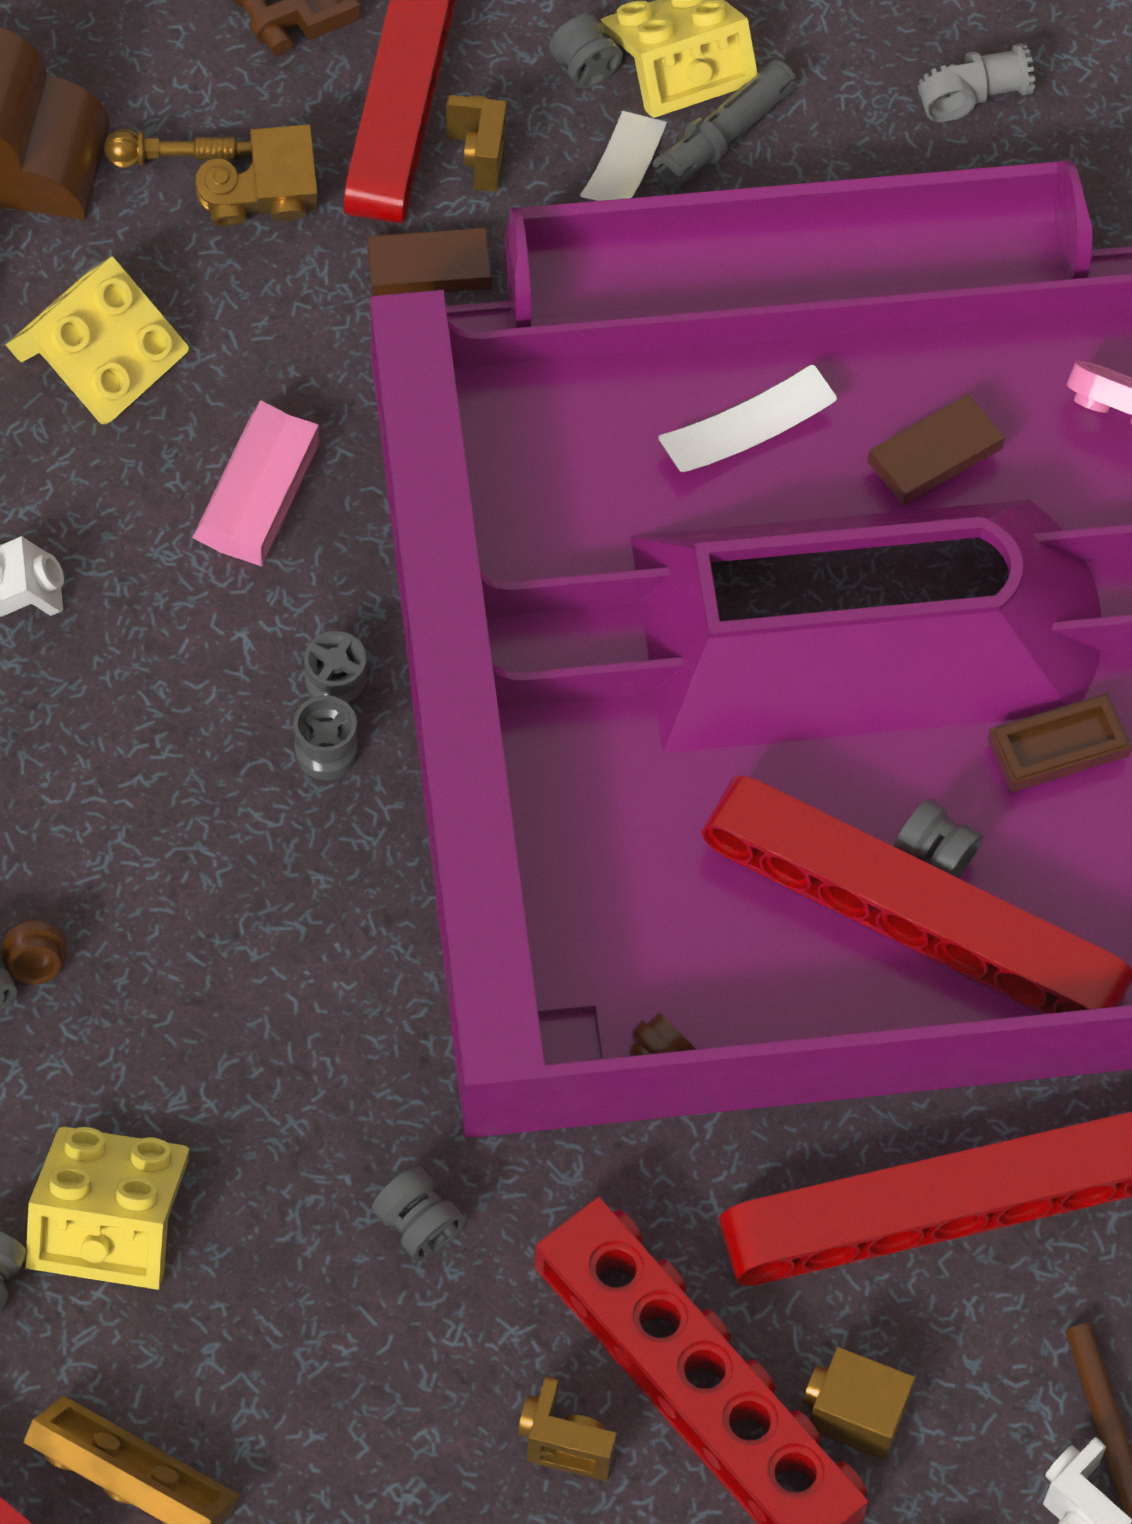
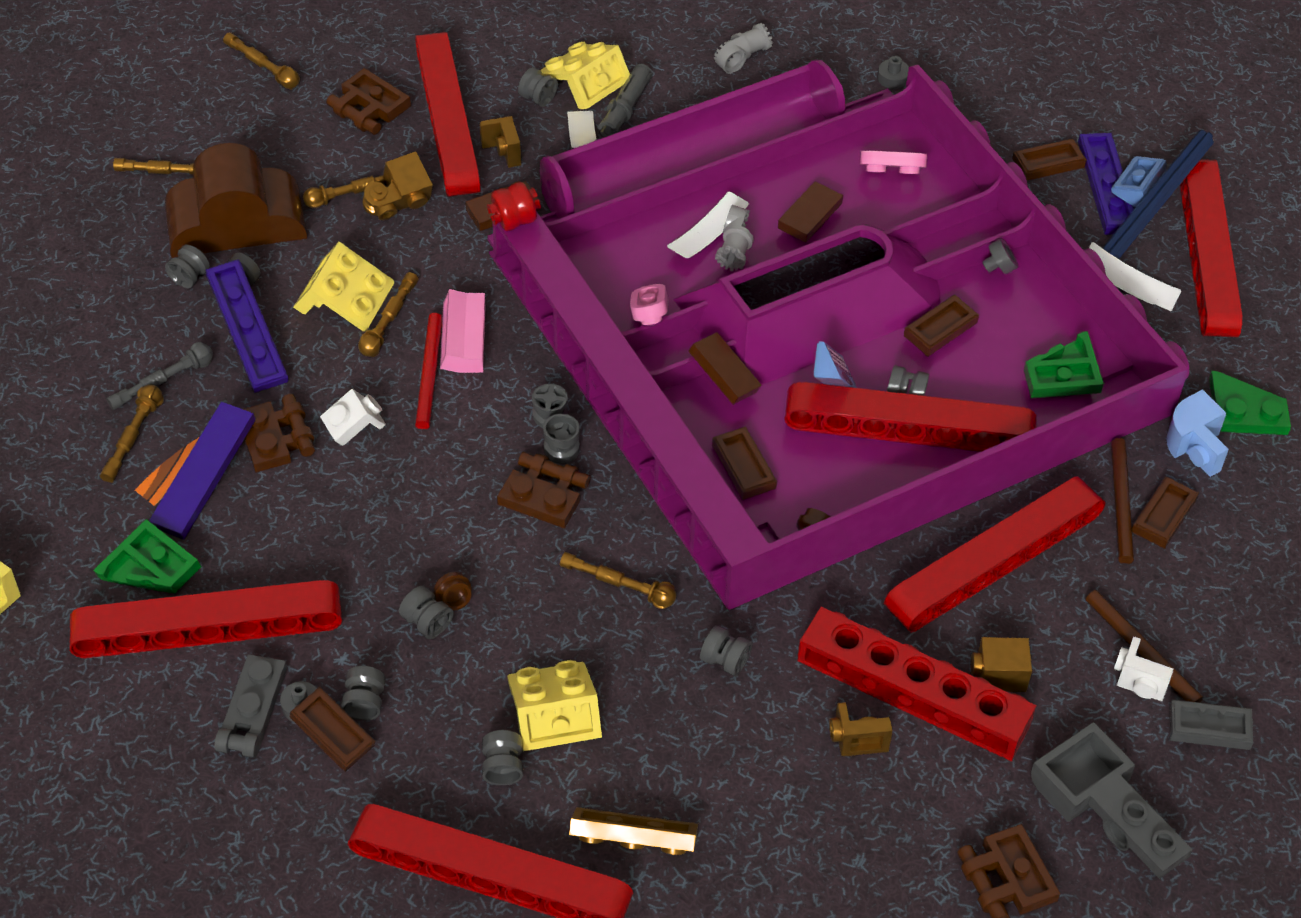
camera: 20 degrees left, 10 degrees down
(102, 450) = (372, 339): none -> pearl gold piece
(172, 536) = (428, 371): none -> red bar
(248, 830) = (541, 498): none -> reddish brown plate
(361, 1071) = (660, 594): none -> pearl gold piece
(400, 298) = (513, 206): none -> red piece
(570, 542) = (649, 304): none -> bright pink plate
(602, 887) = (744, 463): none -> reddish brown tile
(642, 705) = (725, 368): none -> reddish brown tile
(778, 462) = (736, 239): none -> light grey connector
(814, 774) = (831, 367): none -> medium blue slope

